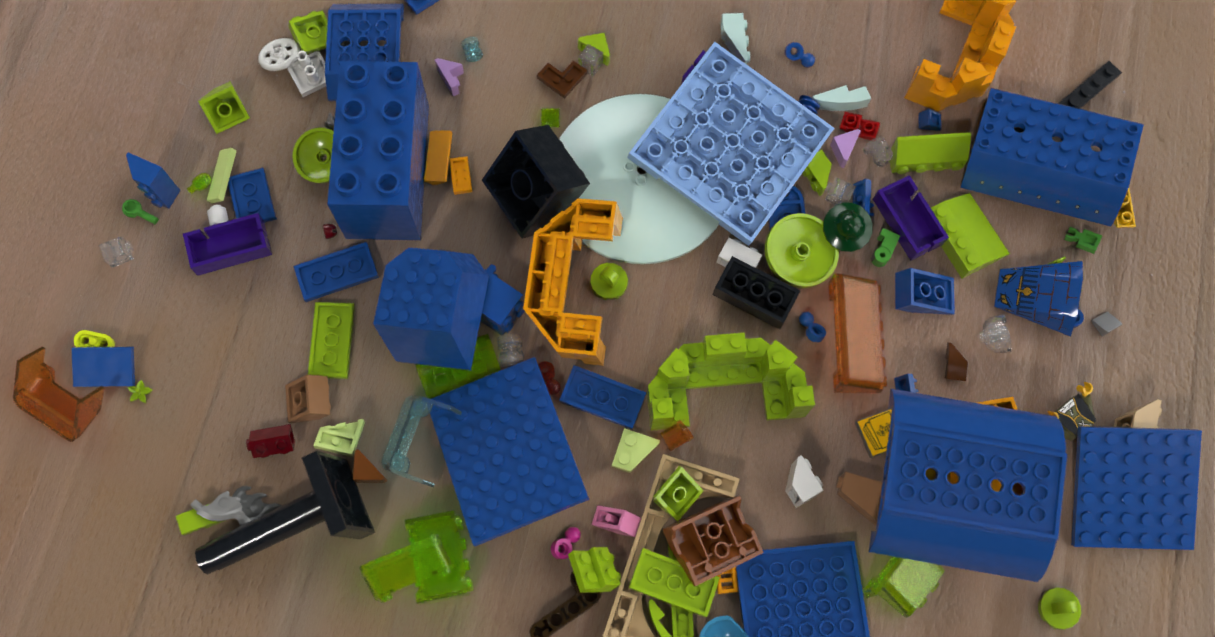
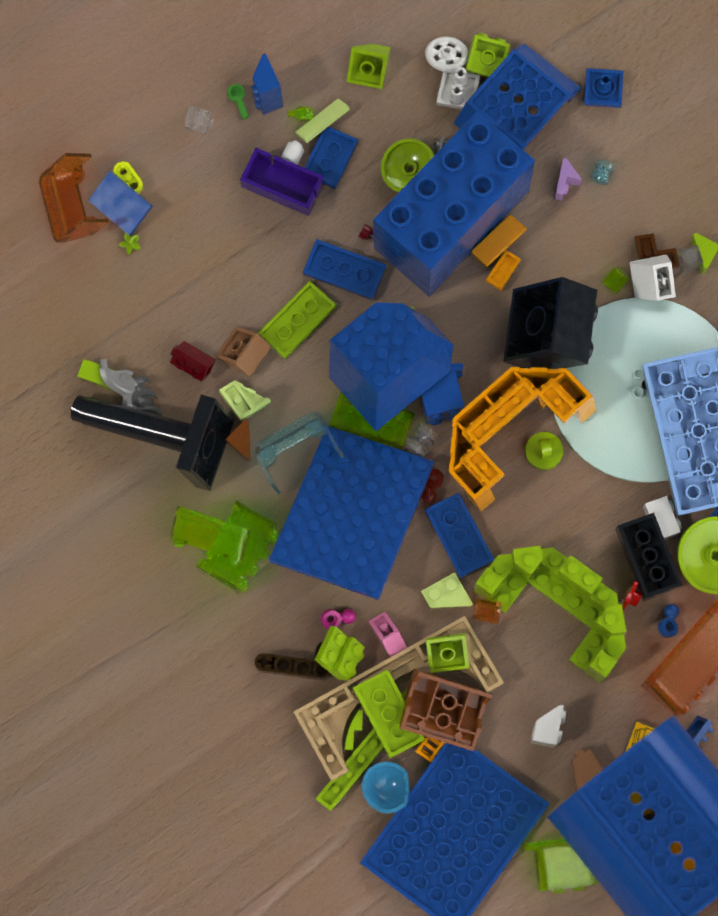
camera: 50 degrees right, 5 degrees up
(577, 92) = (653, 278): none -> white slope
(770, 331) = (632, 596): none -> red animal

